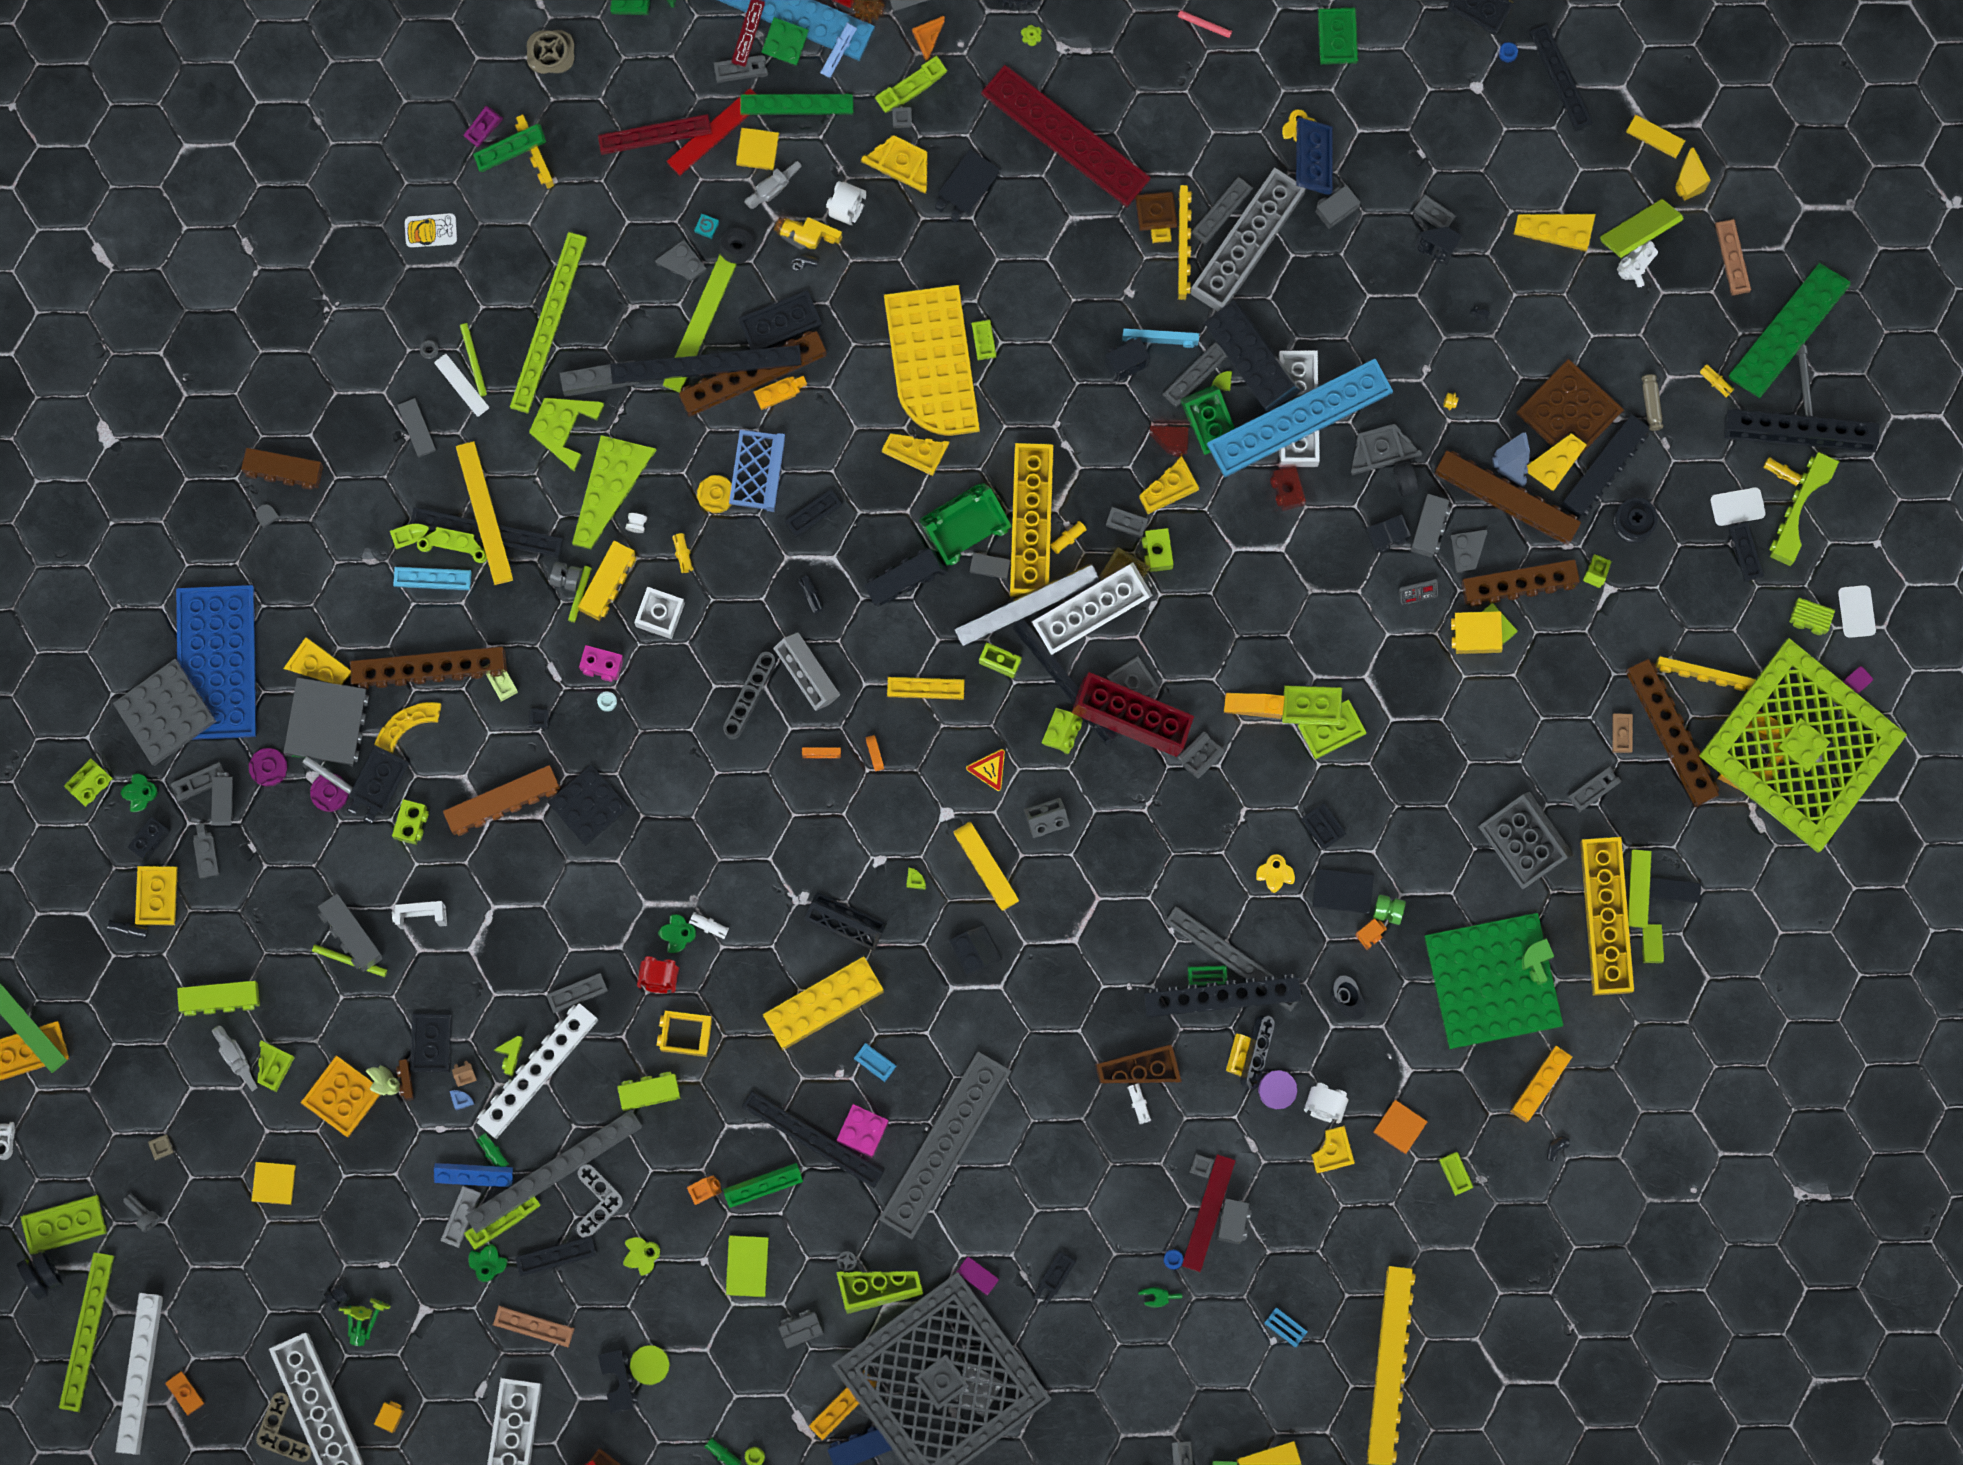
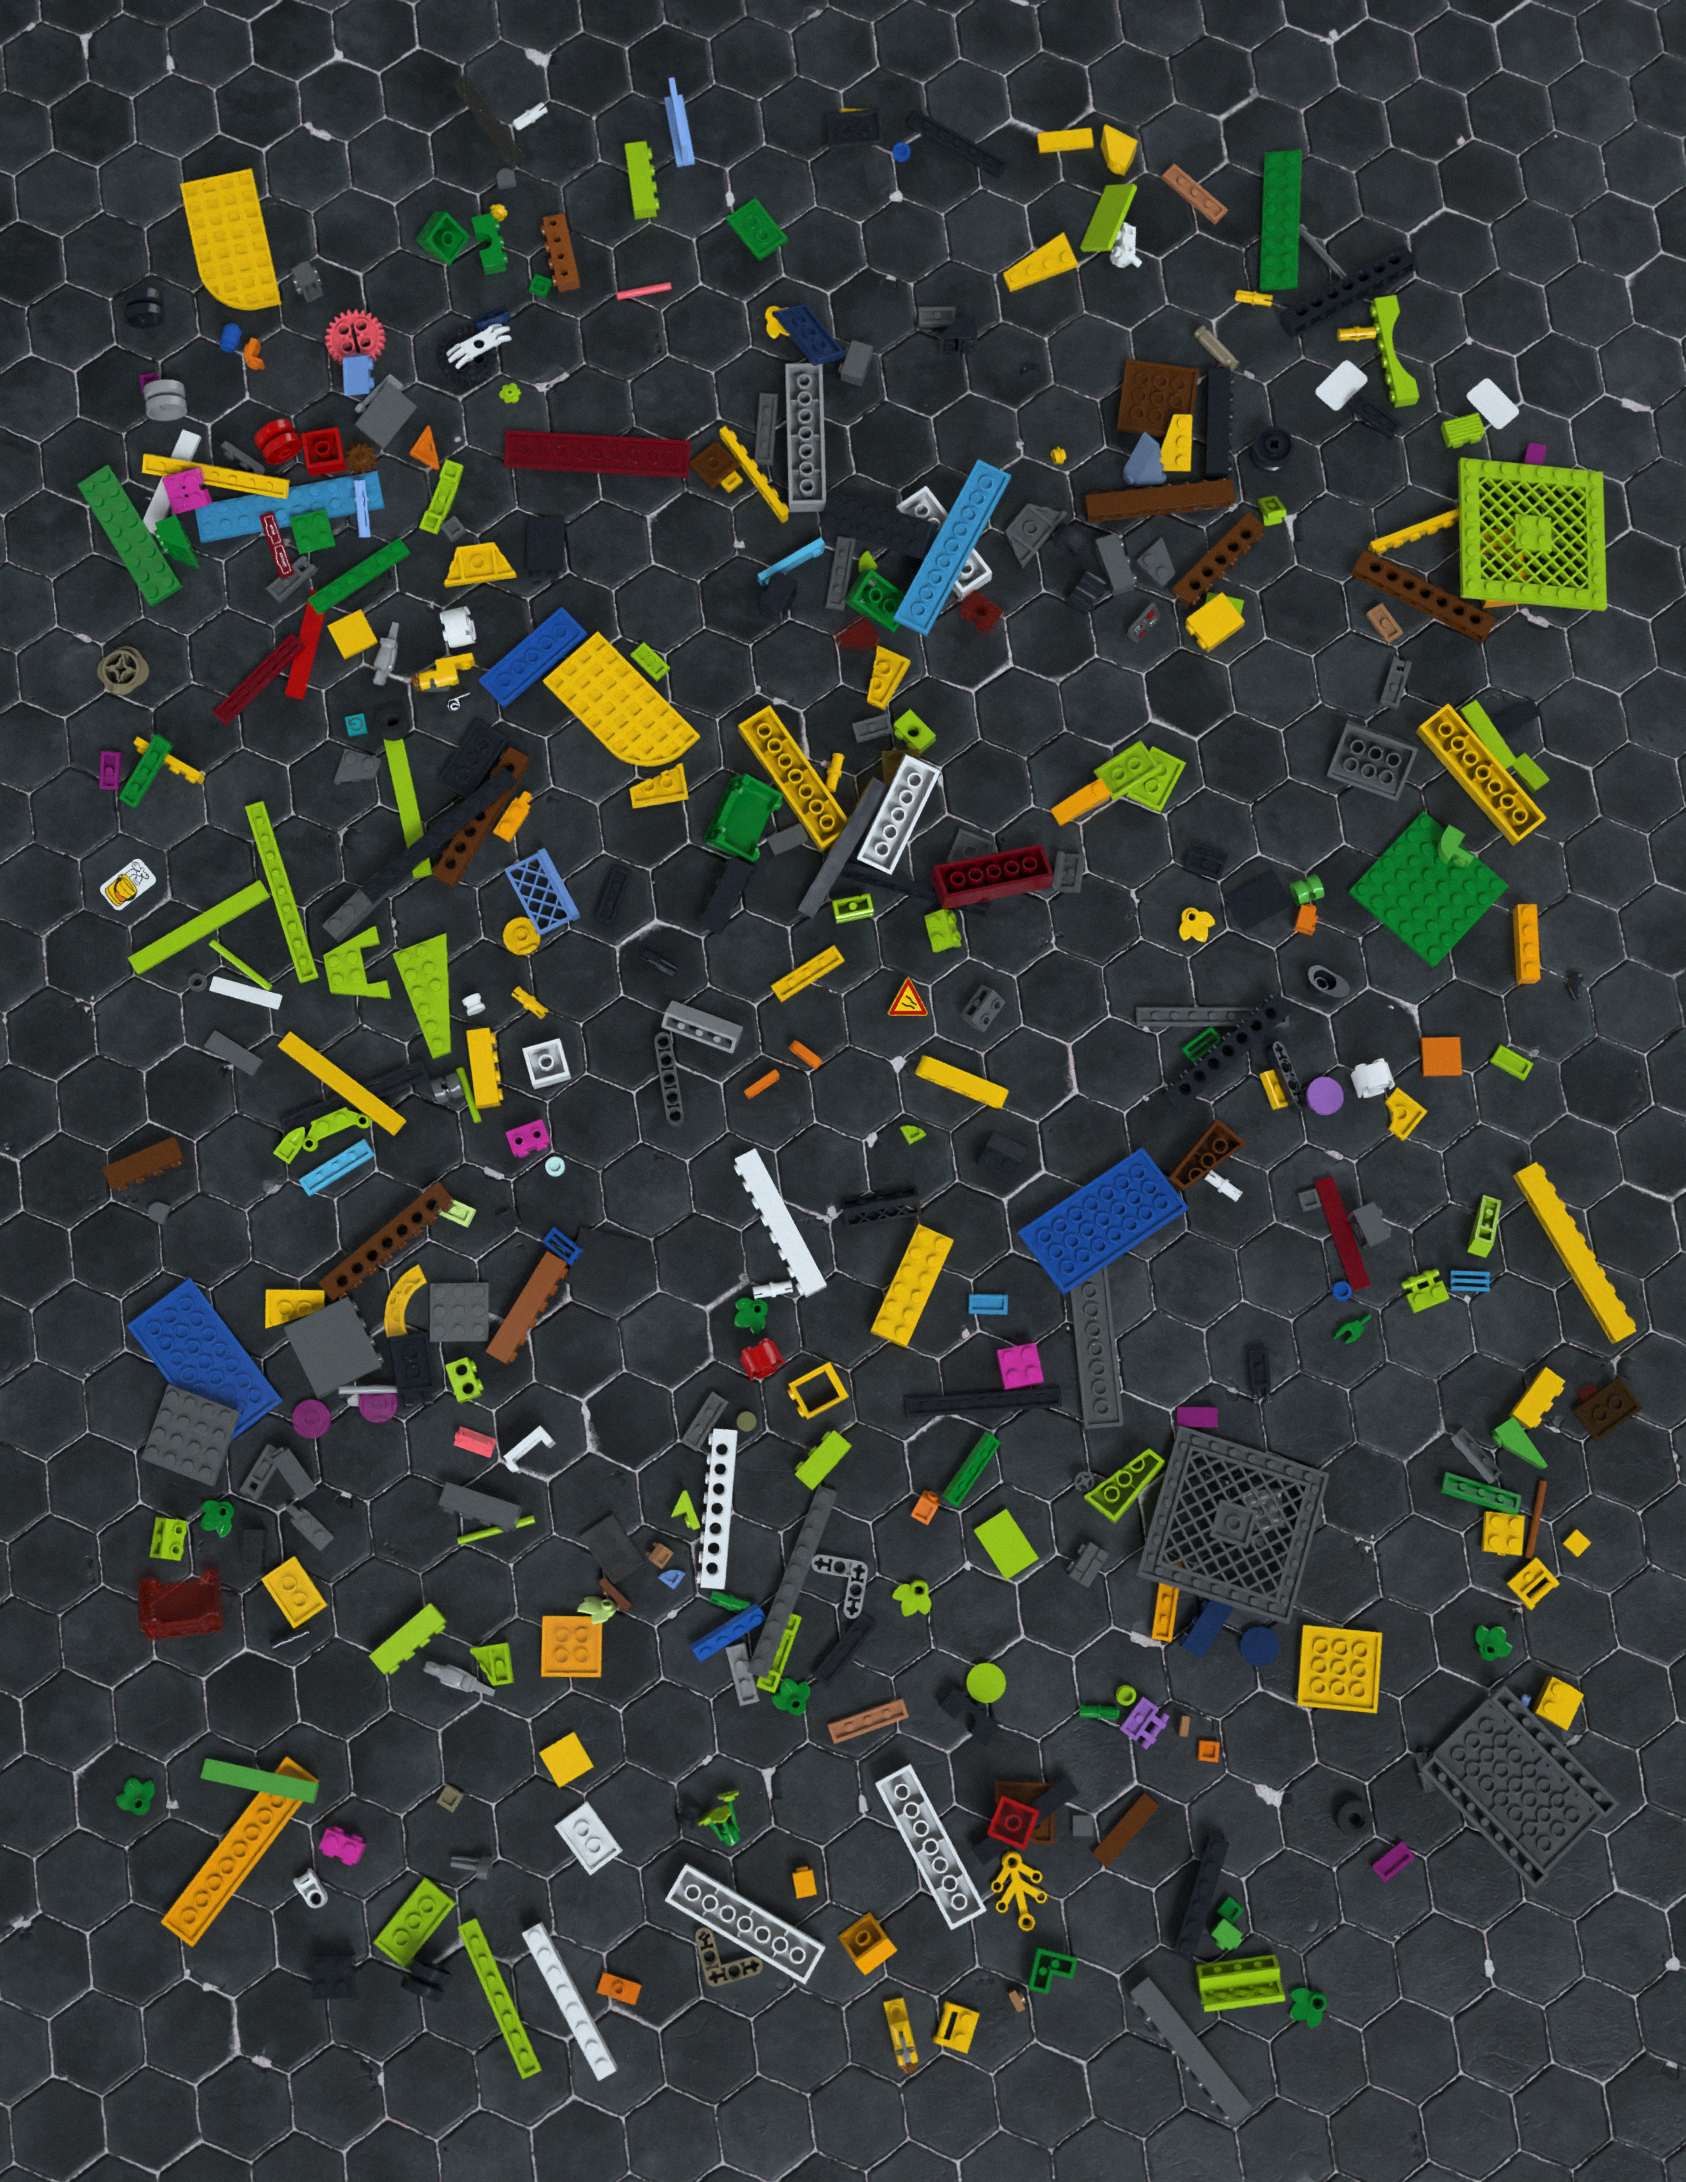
camera: 35 degrees left, 0 degrees up
(53, 1127) = (342, 1845): none -> dark pink brick
(59, 844) = (180, 1607): none -> clear red windscreen
(246, 1257) = (588, 1838): none -> white tile
(383, 878) = (475, 1442): none -> coral hinge
(446, 765) = (459, 1312): none -> dark grey plate
(462, 305) = (199, 927): none -> lime tile
(569, 783) = (574, 1255): none -> blue tile
(610, 1017) = (746, 1421): none -> olive tile
(754, 876) = (780, 1223): none -> white brick
(890, 269) = (532, 657): none -> blue plate
(1017, 1061) = (1102, 1221): none -> blue plate
(1240, 1314) = (1428, 1296): none -> lime plate
(1331, 1291) = (1484, 1227): none -> lime slope

